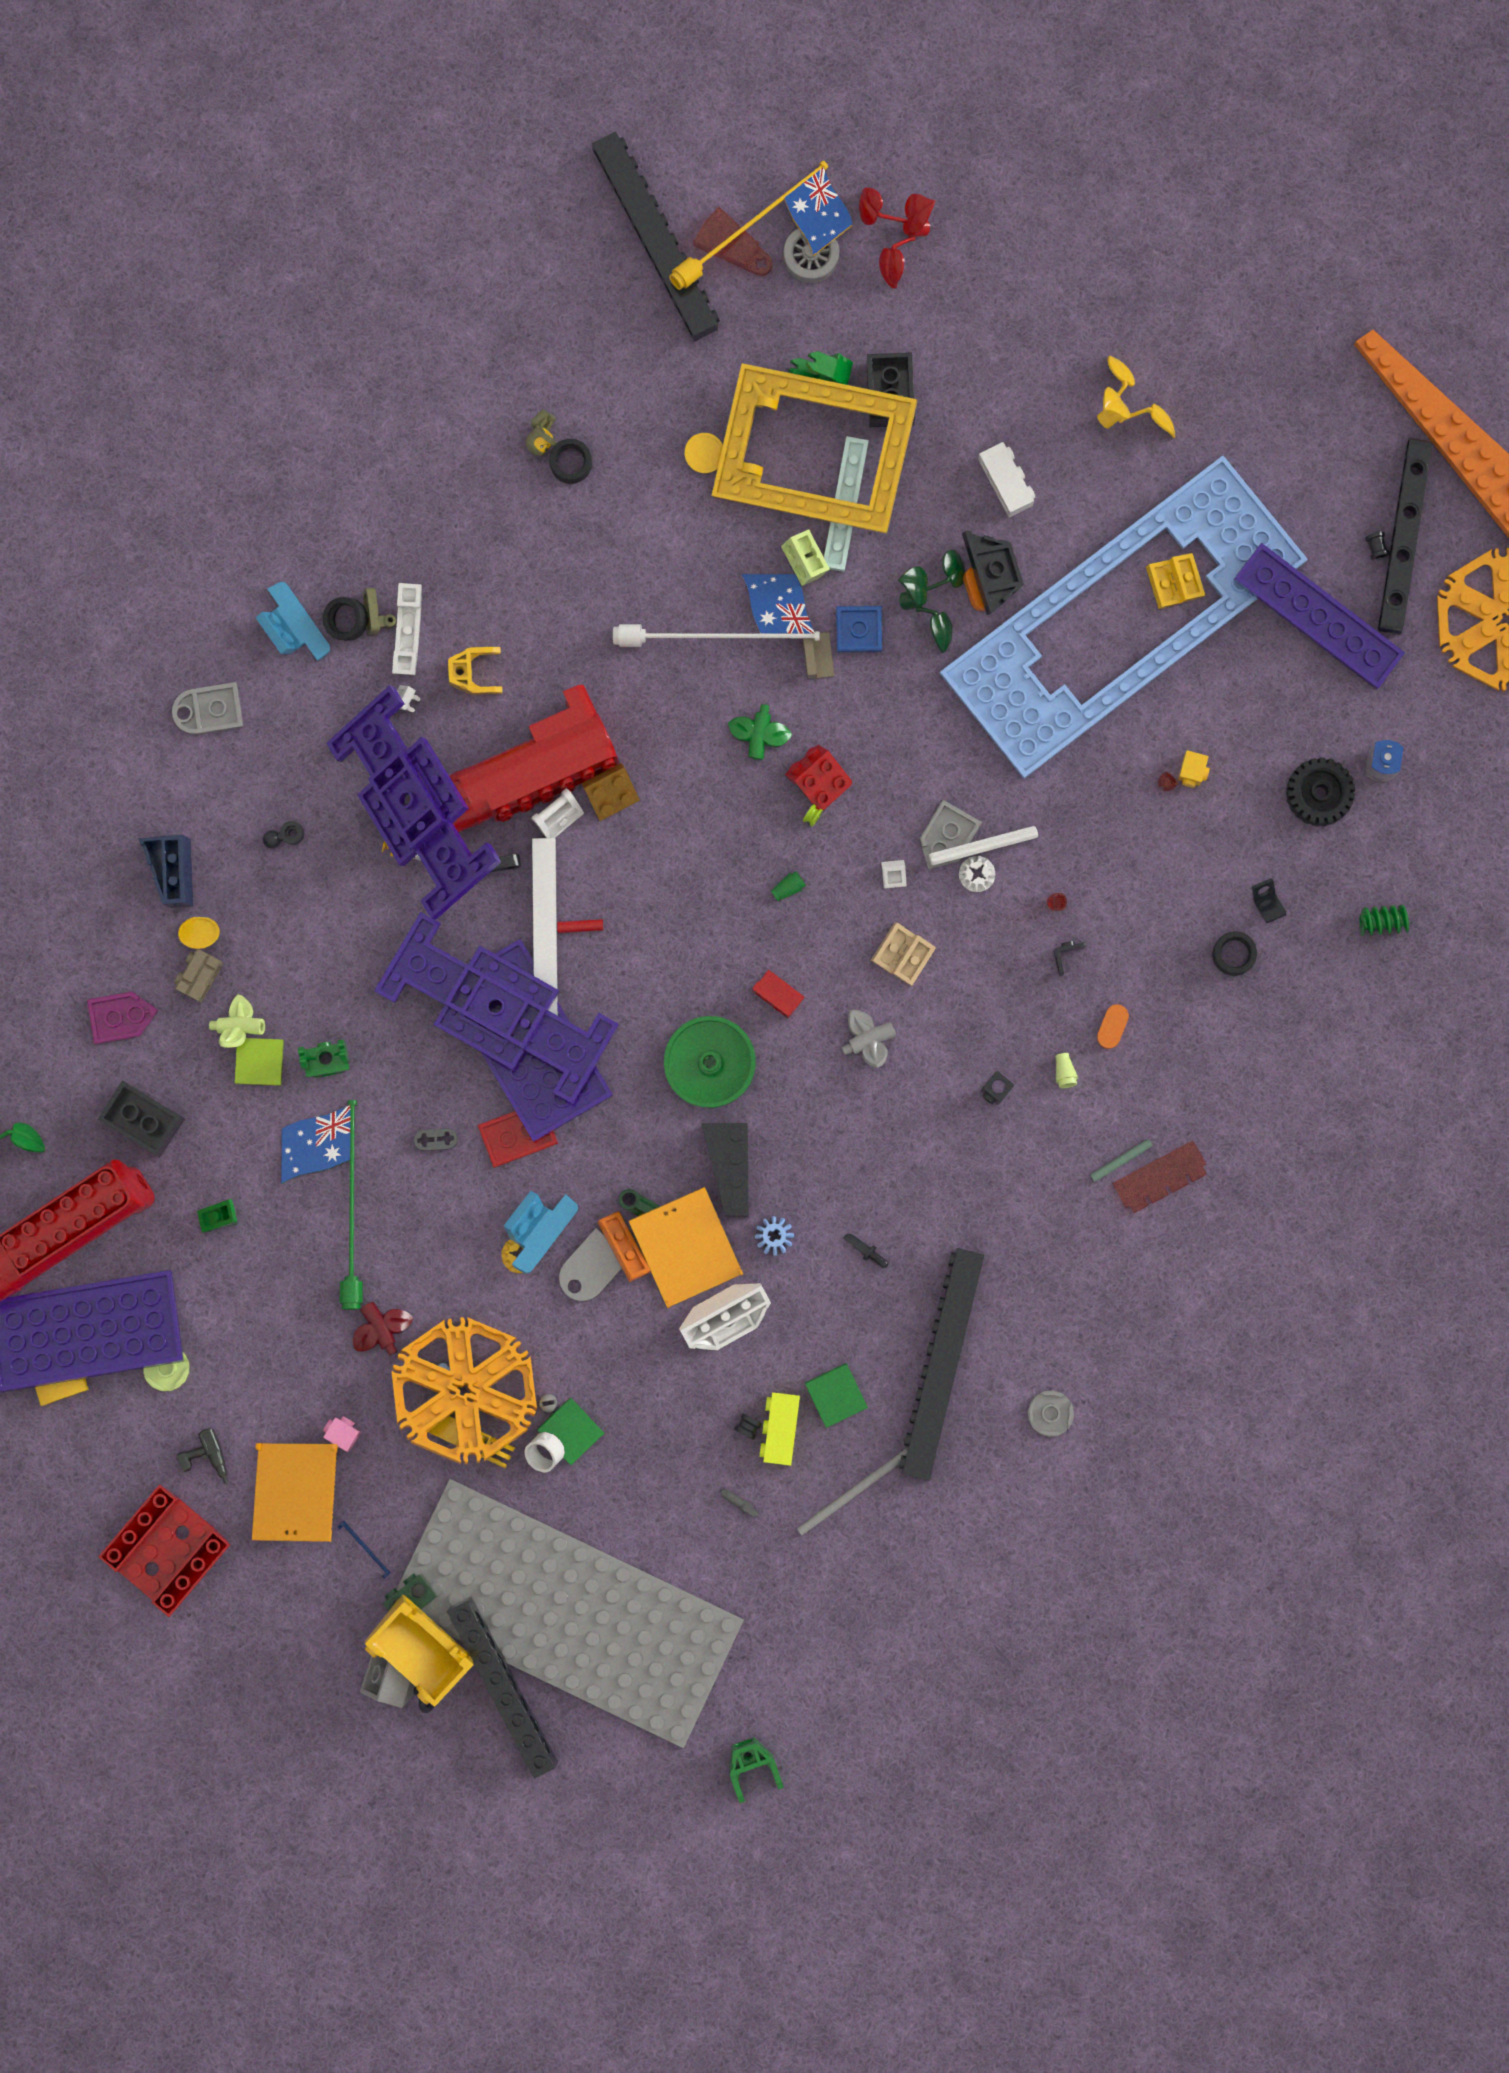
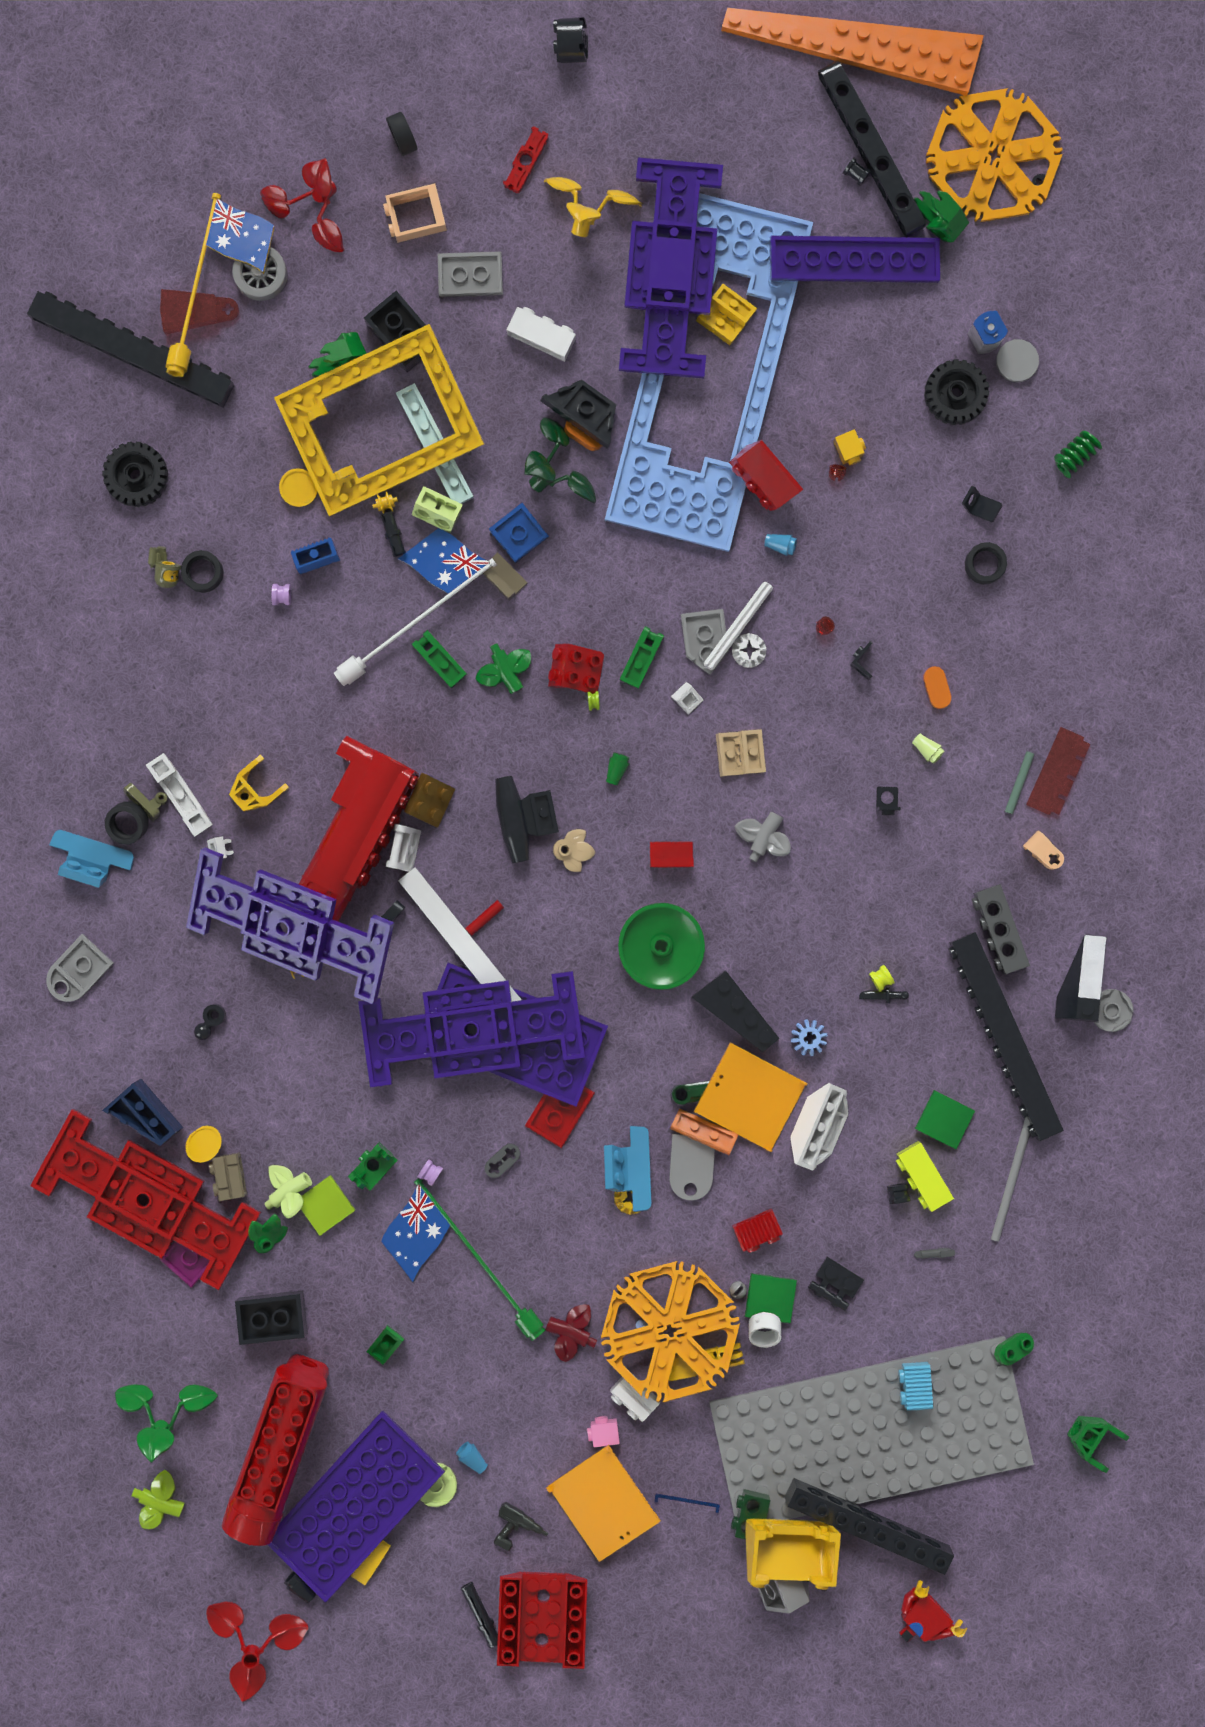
camera: 40 degrees left, 5 degrees up
(118, 1504) = (484, 1622): none -> black pin
(120, 967) = (169, 1212): none -> red piece
(195, 1046) = (270, 1232): none -> green plate
(214, 1368) = (471, 1457): none -> dark azure cone
(367, 1102) = (430, 1172): none -> lavender wheel
(388, 1431) = (637, 1406): none -> white brick
(490, 1804) = (927, 1617): none -> red torso
(583, 356) = (123, 462): none -> black wheel
(603, 1364) = (757, 1230): none -> red brick
(621, 529) = (281, 594): none -> lavender wheel
(635, 1599) = (916, 1386): none -> medium azure brick
(642, 1460) = (839, 1277): none -> black plate
(674, 519) = (315, 556): none -> blue brick
(677, 866) = (522, 817): none -> black plate
(701, 930) = (576, 850): none -> tan plate
(710, 684) = (440, 659): none -> green plate
(744, 1636) = (1015, 1346): none -> green plate
(753, 550) = (393, 534): none -> black pin
(766, 519) = (385, 502): none -> yellow wheel
(875, 1233) = (881, 978): none -> neon yellow wheel
(880, 810) = (641, 658): none -> green plate
(984, 284) = (412, 195): none -> light nougat window
(985, 386) = (470, 274): none -> light grey tile
(1017, 228) = (401, 133): none -> black tyre
(1024, 1237) = (1003, 916): none -> dark grey brick
(1043, 1372) = (1082, 988): none -> black wedge
(1074, 806) = (781, 543): none -> dark azure cone
(1092, 335) = (532, 148): none -> red piece
(1096, 1229) = (1041, 848): none -> light nougat piece
(1101, 736) = (765, 475): none -> red slope
(1150, 500) = (670, 267): none -> dark purple piece
(1218, 258) = (571, 40): none -> black brick
(1393, 805) = (1017, 360): none -> light grey tile
(1423, 639) = (945, 216): none -> green piece

